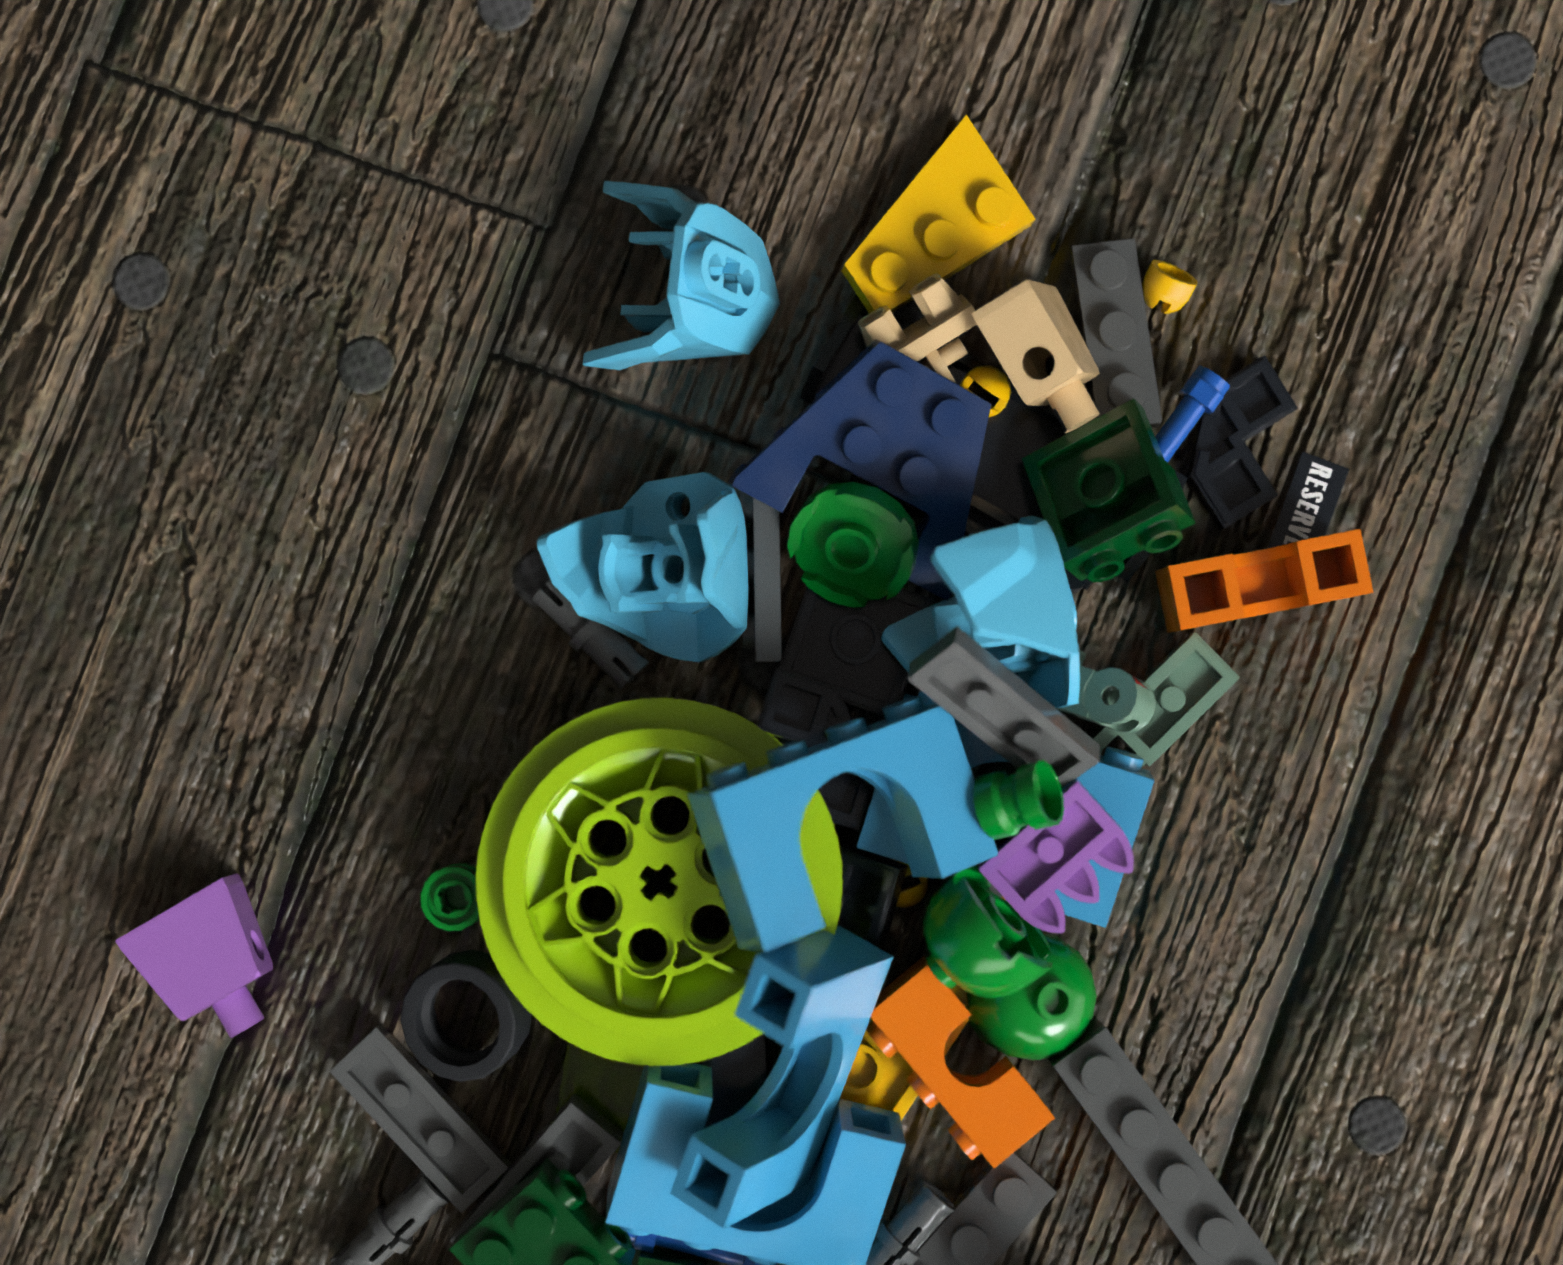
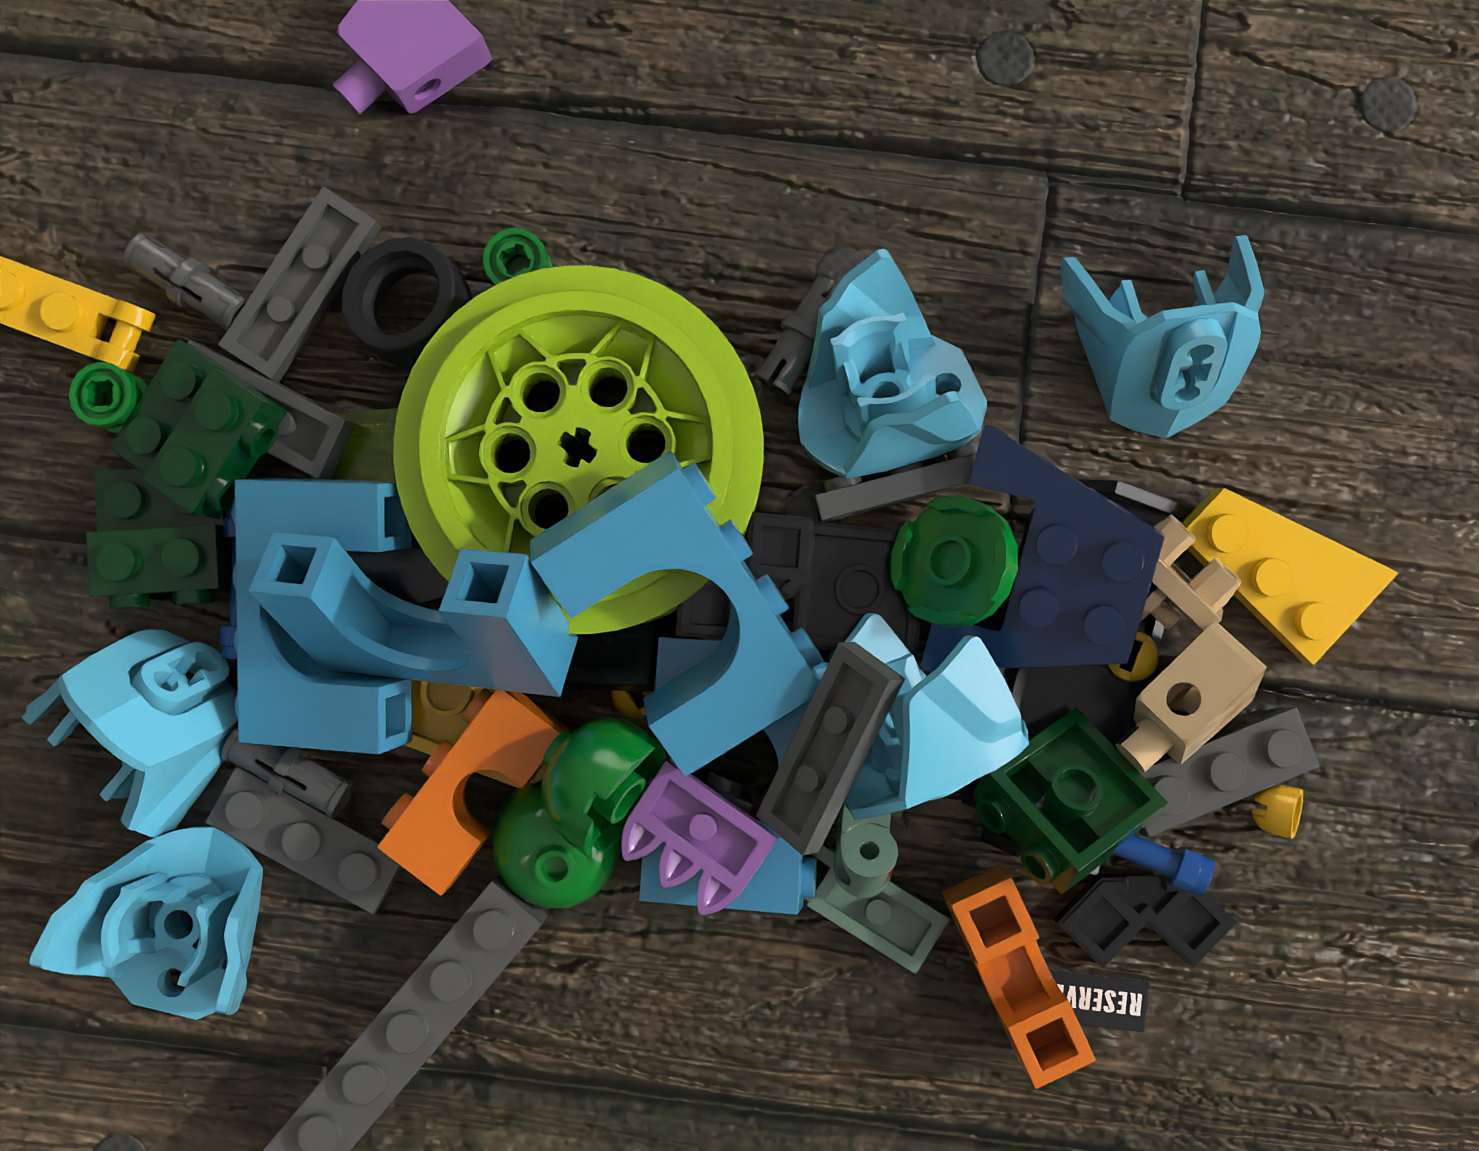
camera: 70 degrees right, 0 degrees up
(1019, 799) = (747, 787): green wheel -> none

